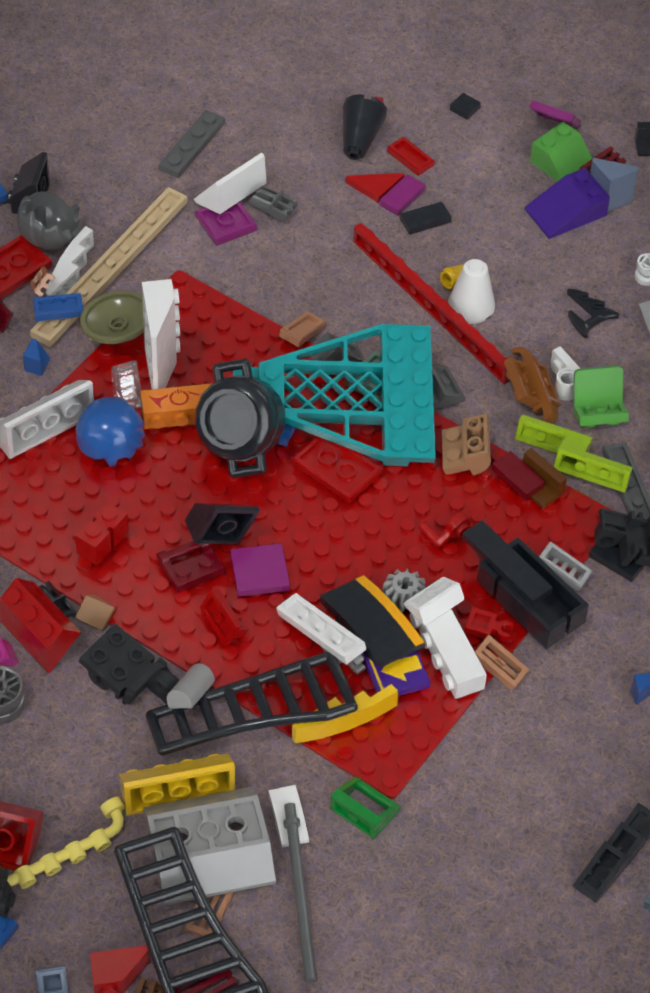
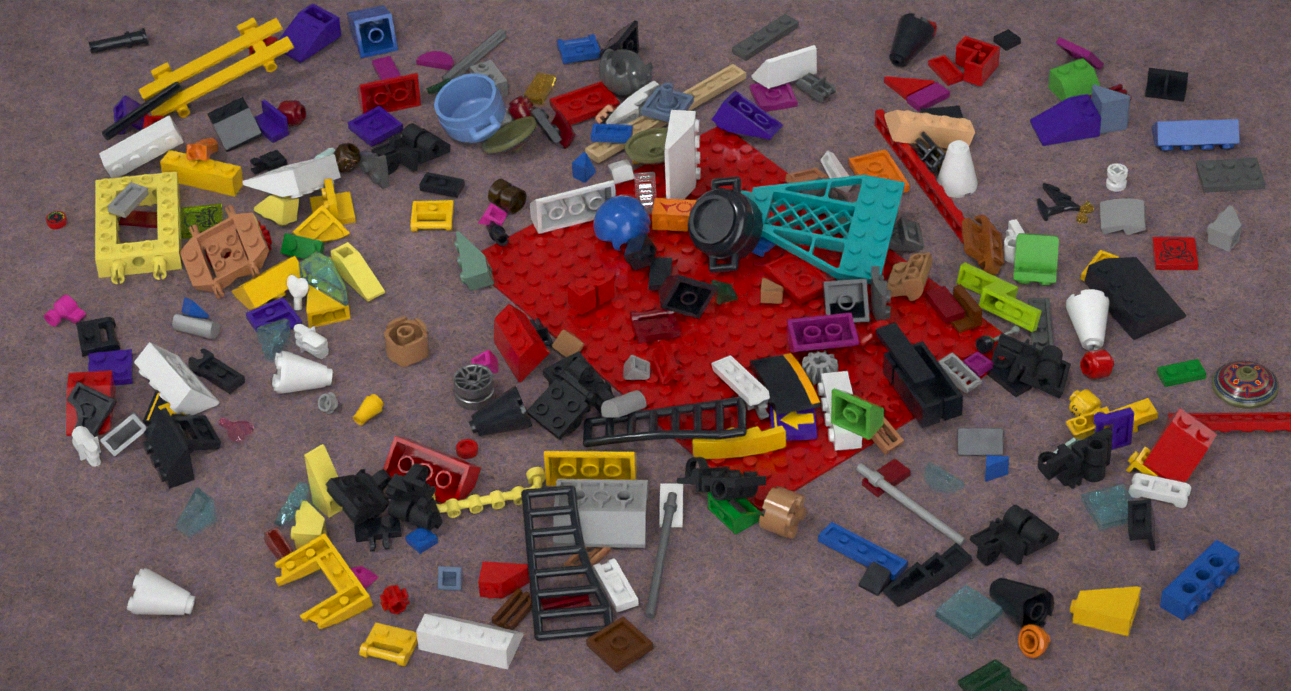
camera: 20 degrees right, 10 degrees down
(14, 783) = (466, 449): none -> red tile
(46, 730) = (501, 415): none -> black cone
(83, 355) = (621, 171): none -> white slope
(112, 257) = (664, 100): none -> sand blue plate
(121, 698) = (566, 401): none -> black plate
(144, 468) = (640, 252): none -> black brick
(174, 491) = (659, 271): none -> black tile
(187, 630) = (636, 369): none -> light grey slope
(208, 260) = (744, 117): none -> dark purple slope
(258, 499) = (724, 292): none -> slope
(258, 946) = (615, 585): none -> white plate
(260, 570) = (709, 337): magenta tile -> none
(313, 494) = (771, 292): none -> medium nougat slope
(332, 313) = (834, 168): none -> white piece
(351, 778) = (721, 481): none -> black plate
(379, 303) = (878, 165): none -> orange plate
(395, 546) = (821, 332): none -> magenta slope
(404, 492) = (846, 297): none -> slope
(425, 243) = (943, 130): none -> light nougat slope
(427, 803) = (783, 512): none -> medium nougat brick
(435, 600) = (838, 374): white slope -> none
(436, 273) = (930, 152): none -> black arm
(444, 481) = (879, 295): none -> dark grey slope
(446, 137) = (977, 58): none -> red brick
(477, 656) = (855, 414): none -> bright green slope
(519, 732) = (877, 479): none -> light grey bar
(524, 723) = (893, 473): none -> dark red tile
(532, 834) = (861, 549): none -> blue plate
(559, 870) = (875, 579): none -> black slope
(580, 520) = (986, 343): none -> black hinge
(580, 548) = (978, 363): none -> magenta tile
(587, 714) = (941, 480): none -> clear light blue tile
(614, 651) = (980, 441): none -> panel
(625, 315) = (1086, 208): none -> clear yellow piece

